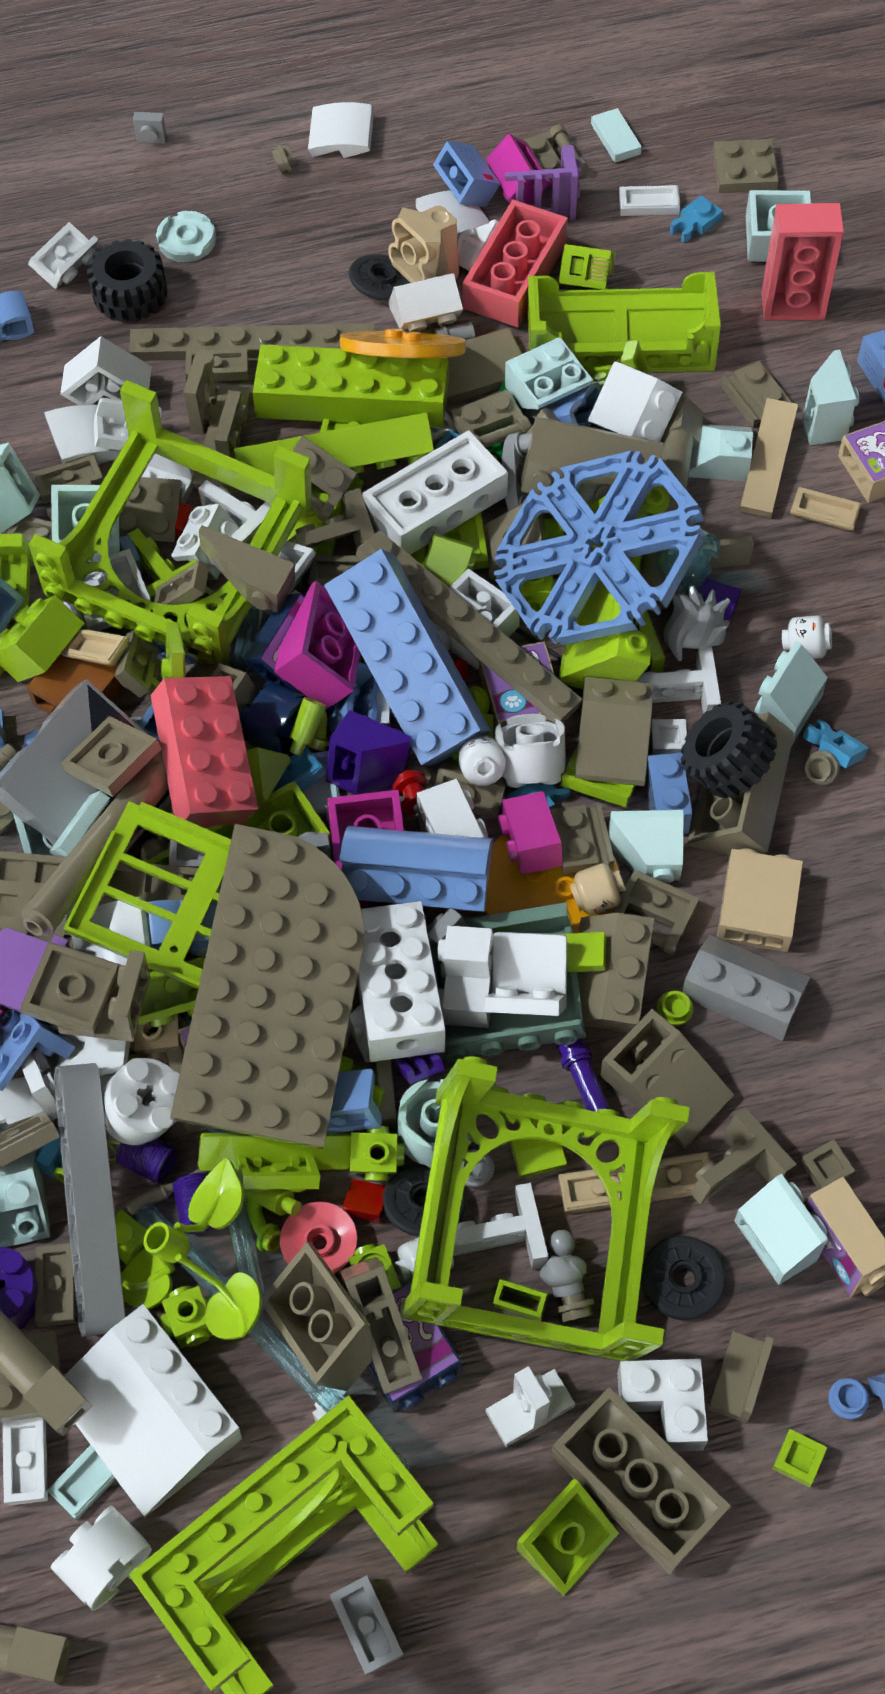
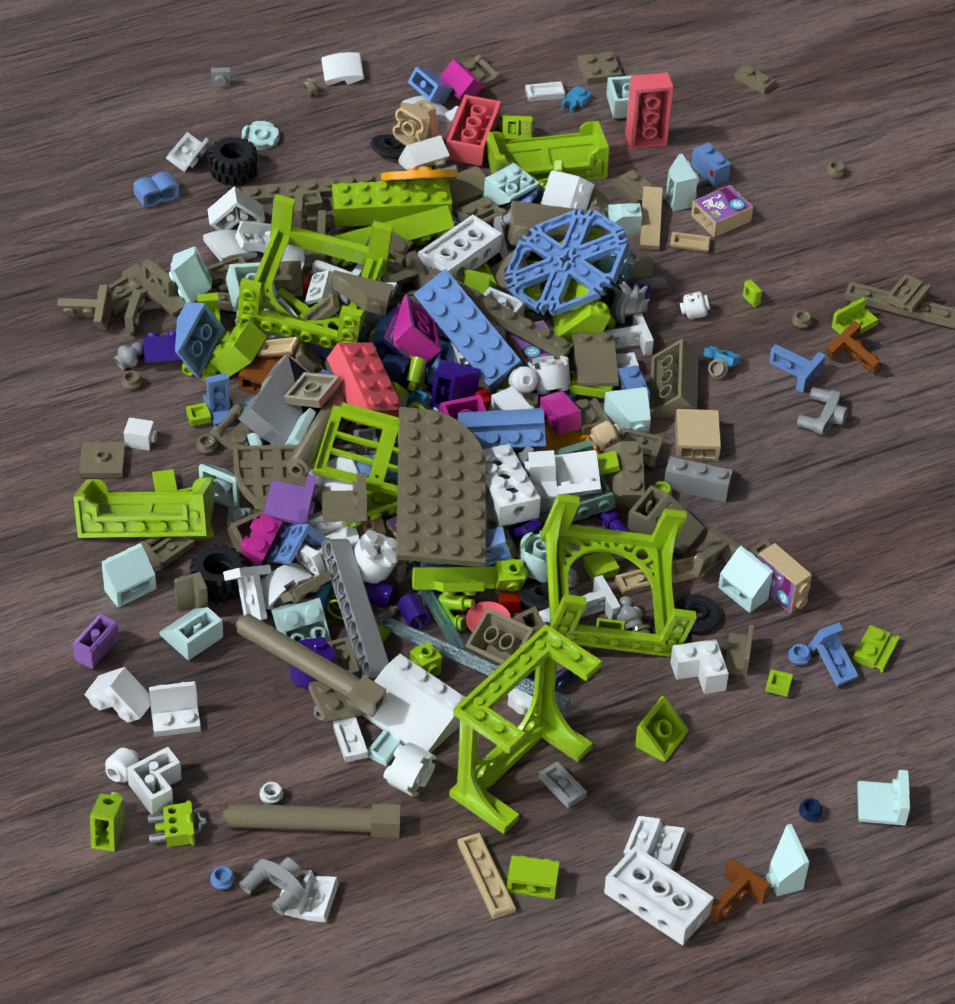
camera: 15 degrees left, 15 degrees down
(70, 989) = (326, 497): dark tan plate -> none
(147, 1276) = (429, 598): lime plant -> none
(174, 663) = (330, 338): lime plate -> none
(530, 1406) = (629, 674): white bracket -> none
(564, 184) = (494, 83): medium lavender plate -> none
(616, 135) = (515, 57): light aqua tile -> none
(639, 1480) = (696, 698): dark tan slope -> none
(728, 749) = (664, 357): black tyre -> none
(793, 689) = (693, 327): light aqua slope -> none

